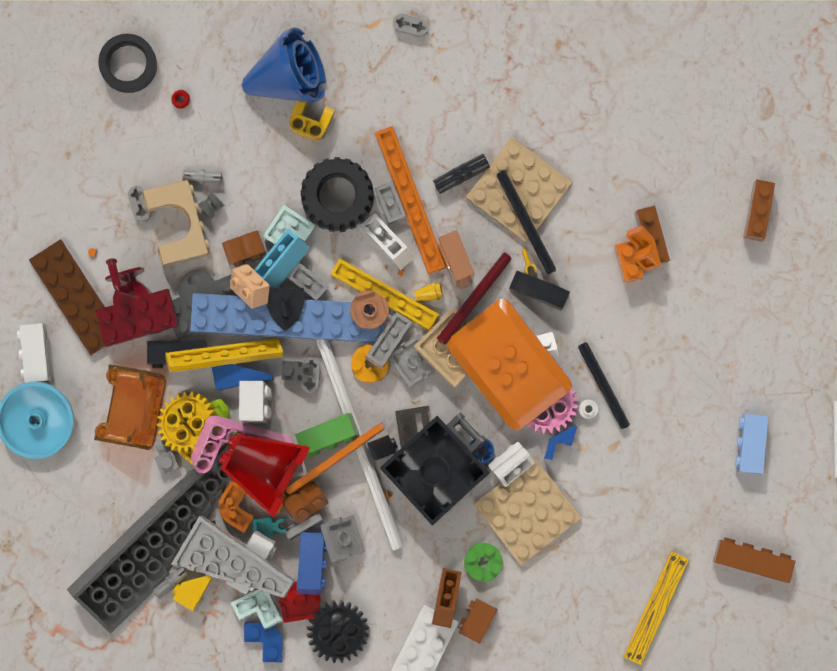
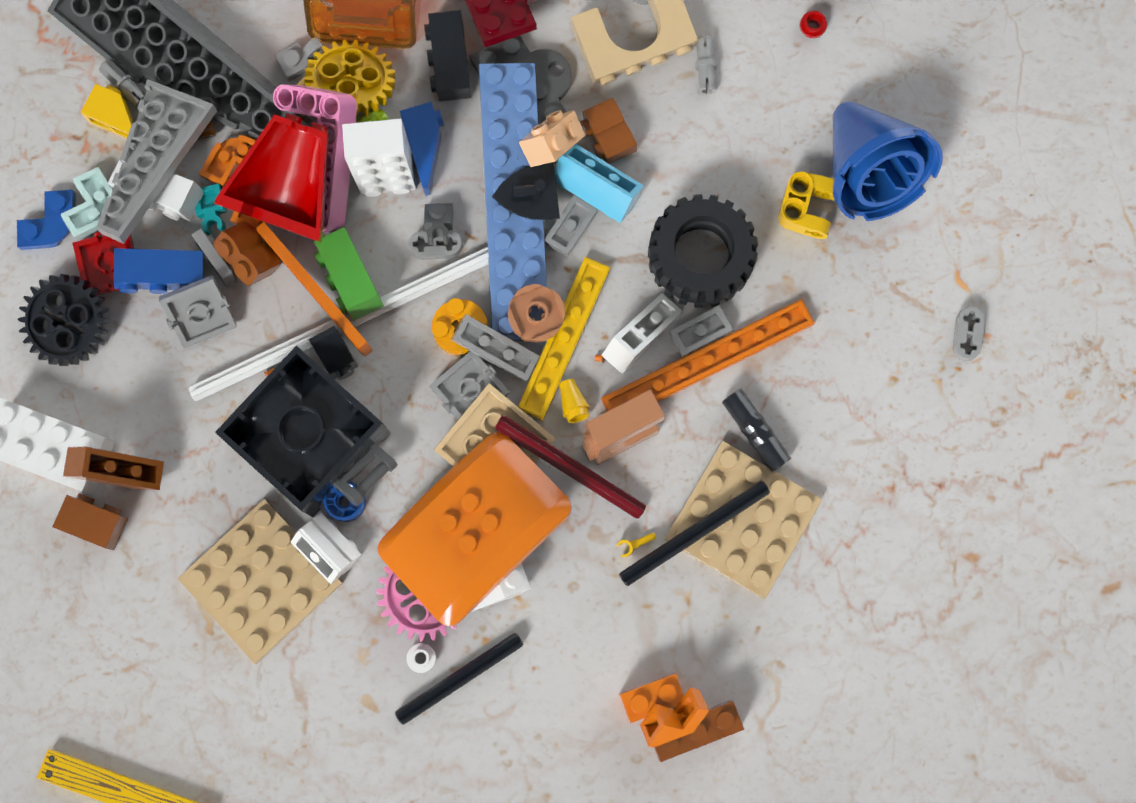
camera: 85 degrees right, 5 degrees down
(207, 208) = (666, 79): dark grey wheel -> none
(224, 355) = (449, 114): yellow plate -> none
(289, 220) = (655, 193): light aqua plate -> none
(407, 422) = (378, 390): clear smoke plate -> none
(493, 566) = (164, 516): bright green plate -> none
(539, 290) = (594, 565): black slope -> none
(565, 437) = (373, 624): blue slope -> none

